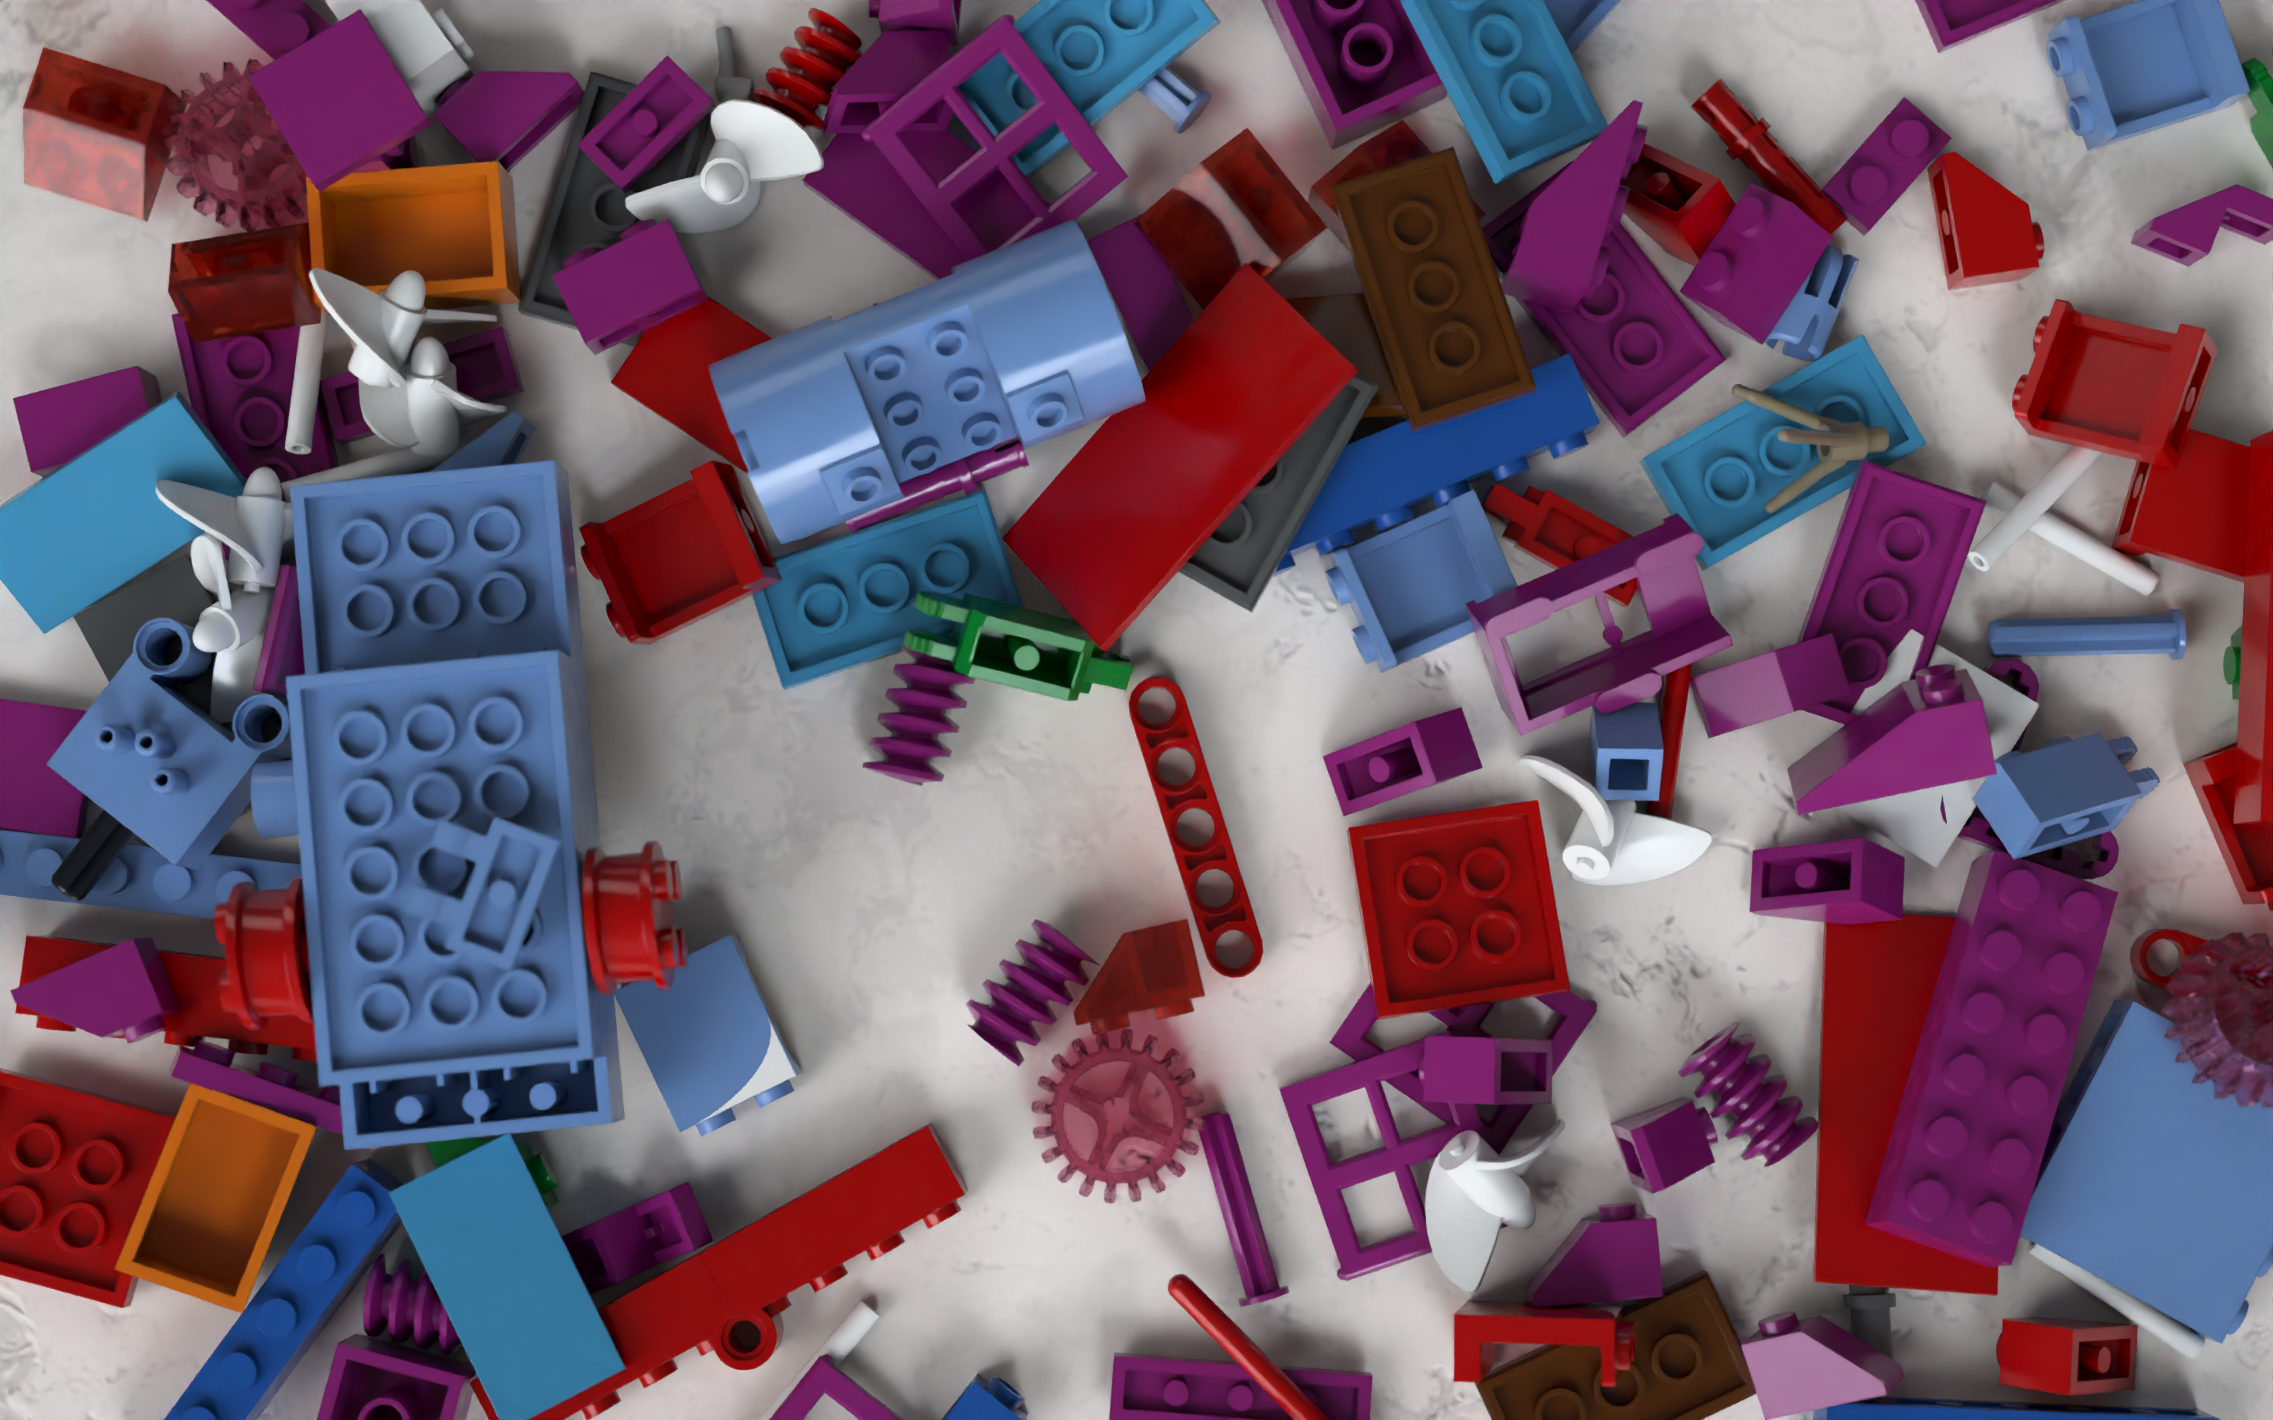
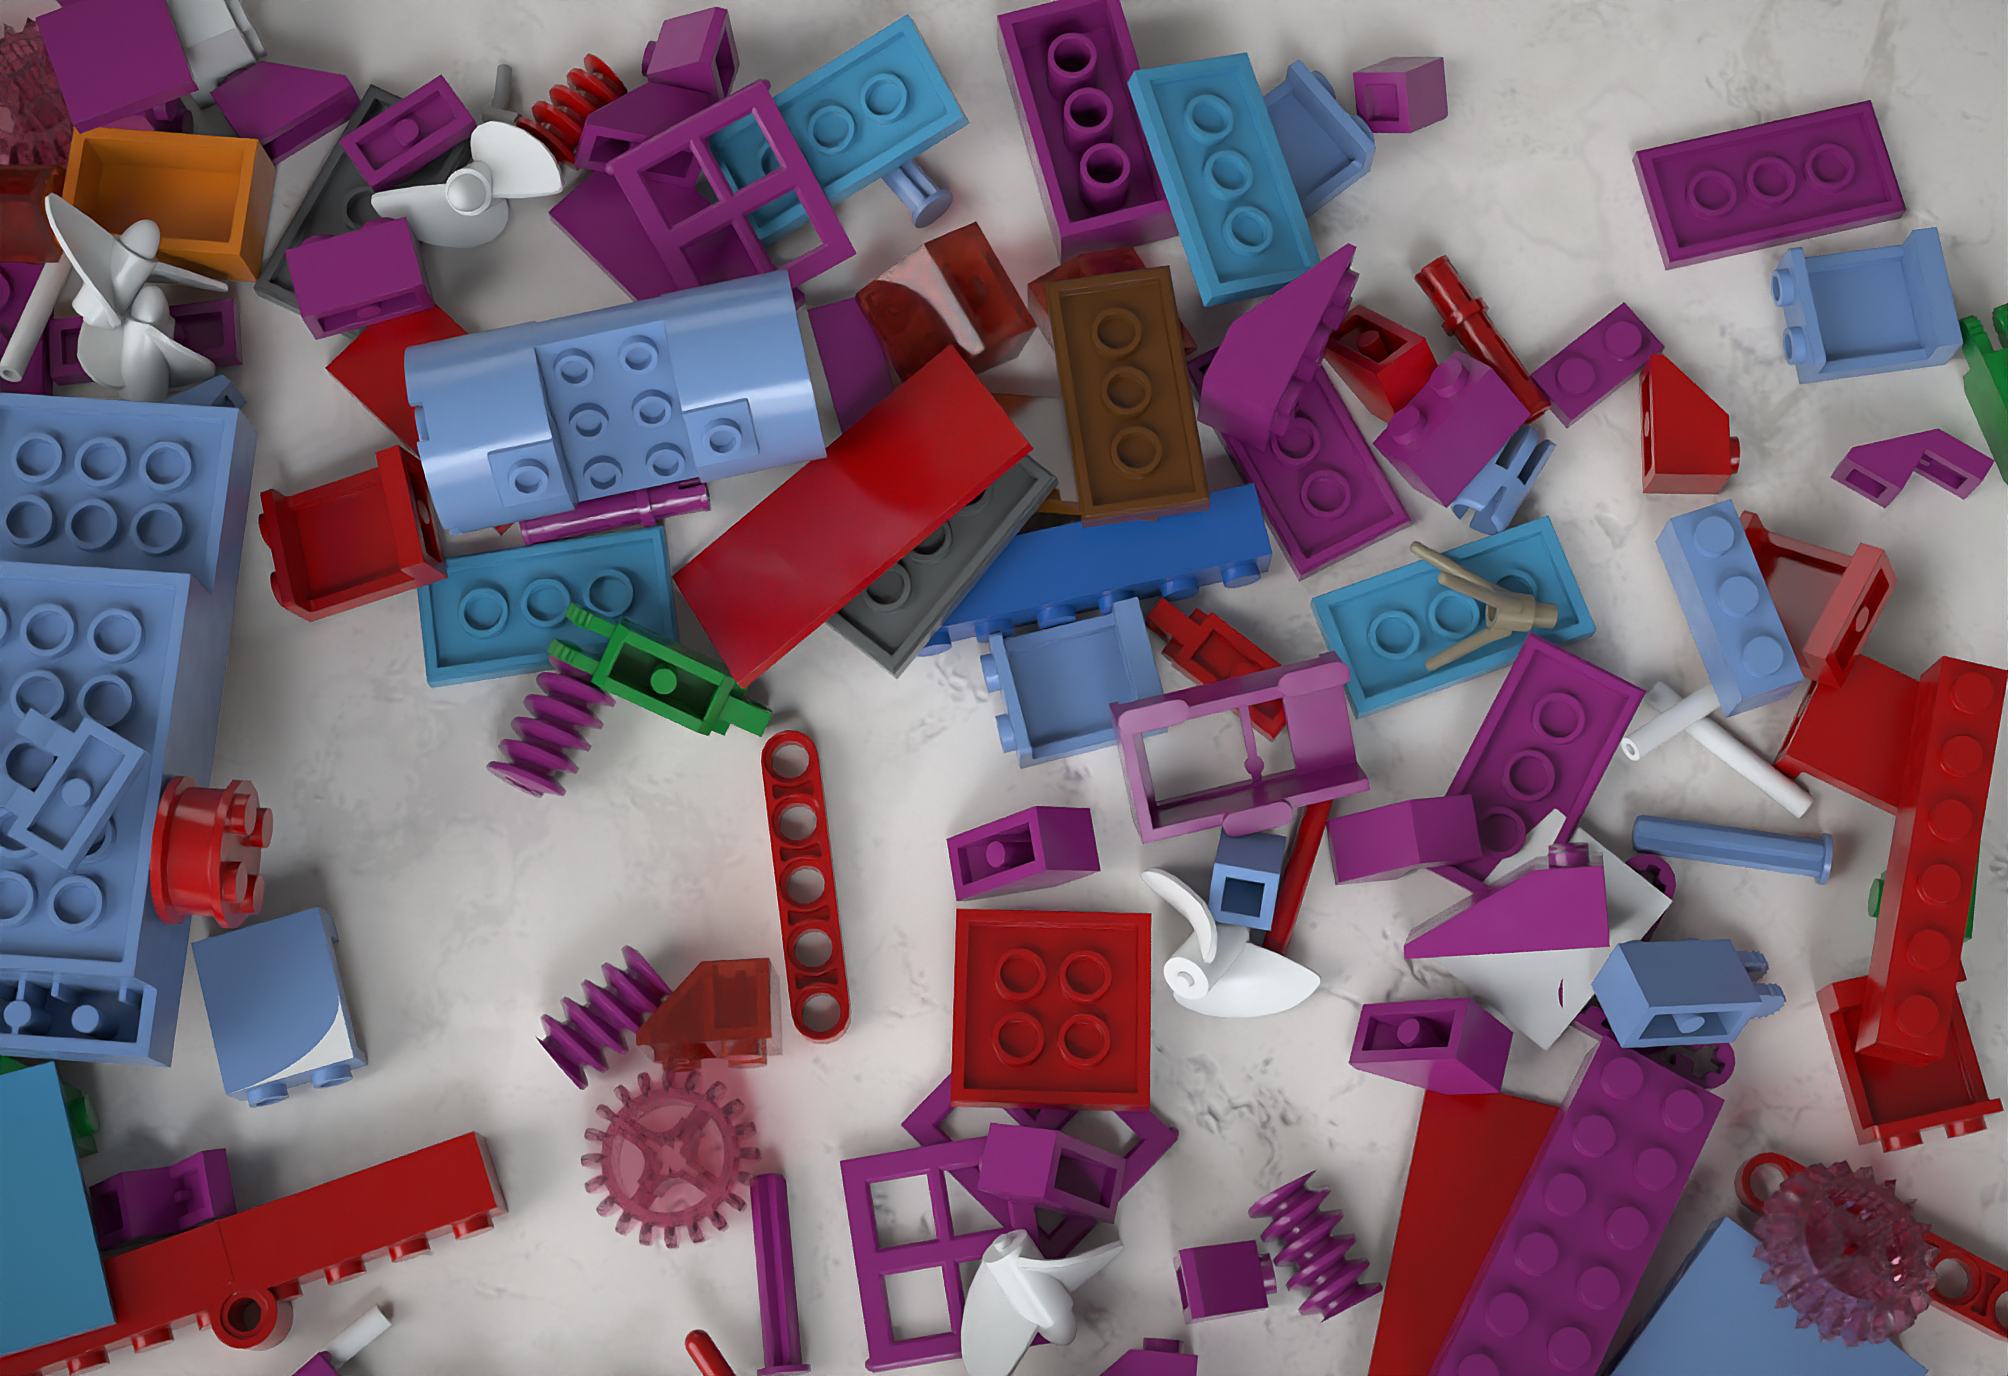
camera: 15 degrees right, 10 degrees down
(2059, 409) = (1728, 608): none -> medium blue brick

